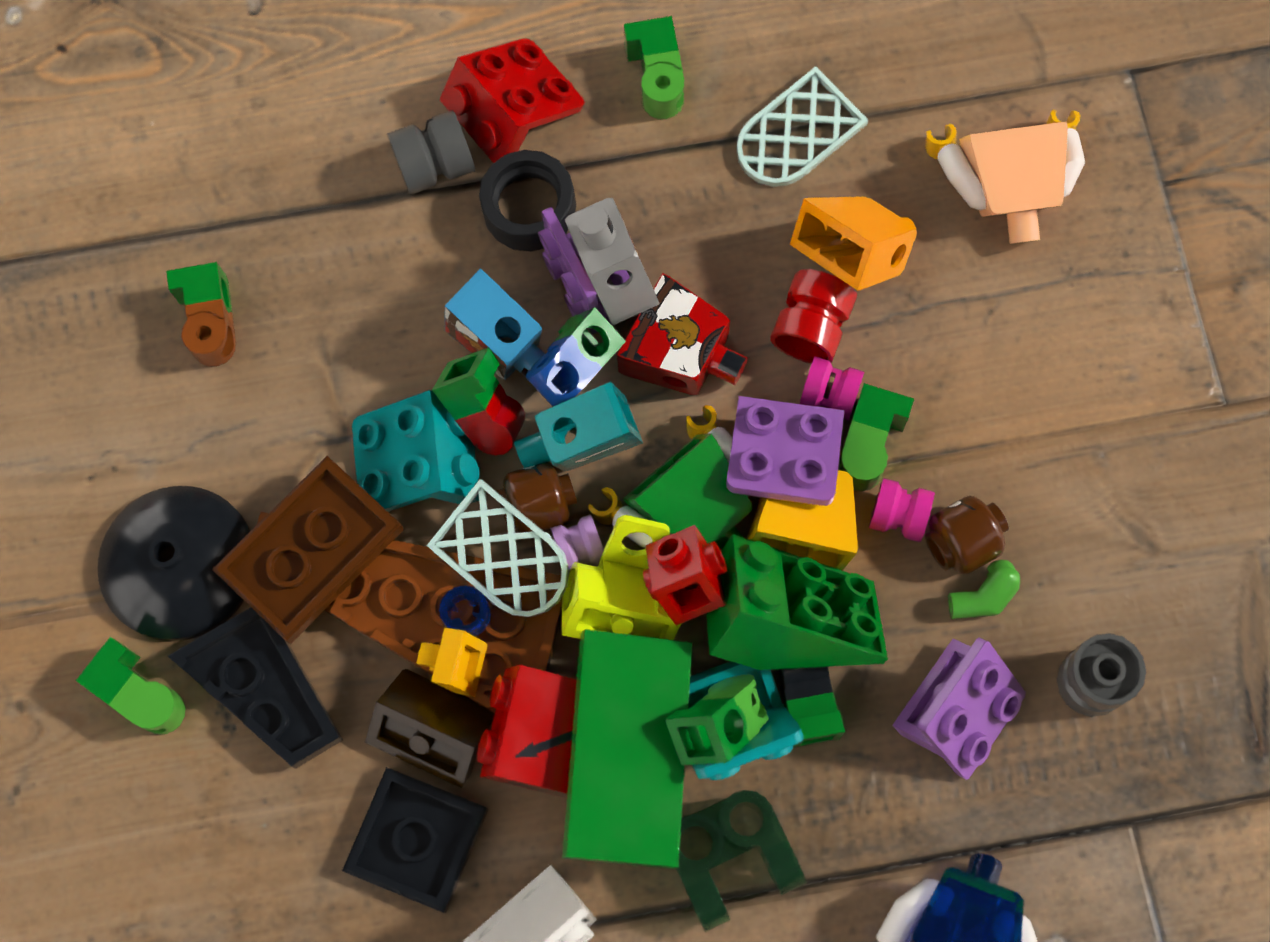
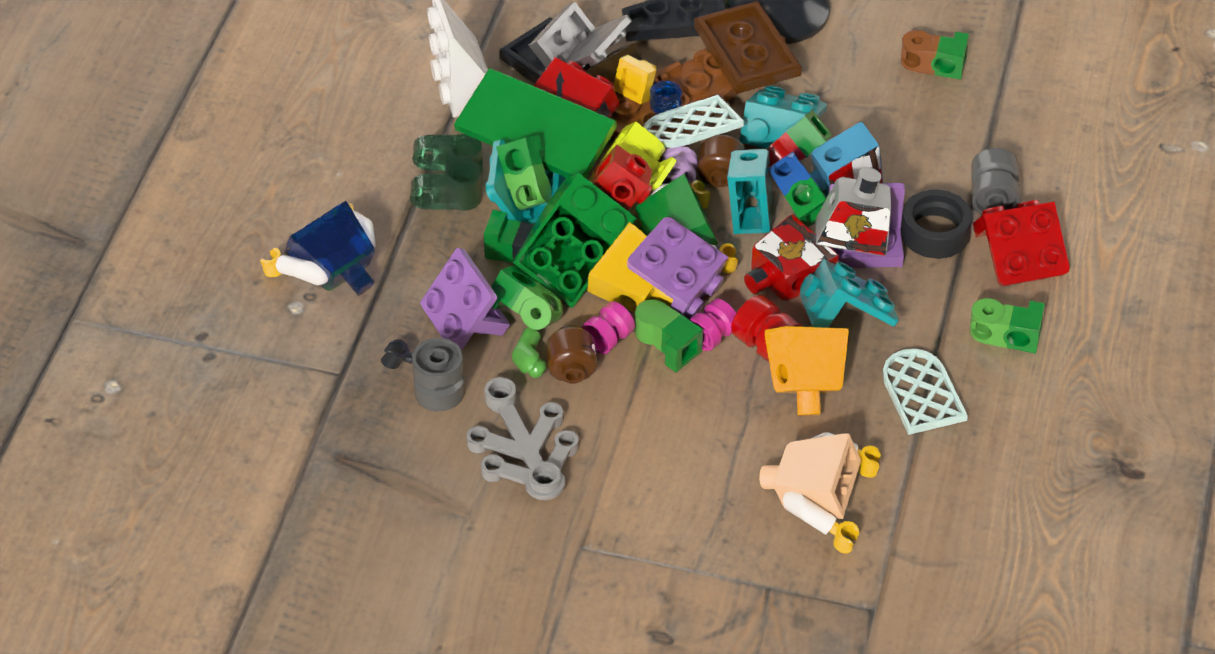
camera: 110 degrees right, 25 degrees down
(414, 772) = (575, 38): none -> flat silver bracket
(725, 242) = (834, 285): none -> teal bracket
(918, 631) = (526, 297): none -> leg
(1076, 747) = (396, 353): none -> black hand
(1128, 526) = (500, 398): none -> light grey plant

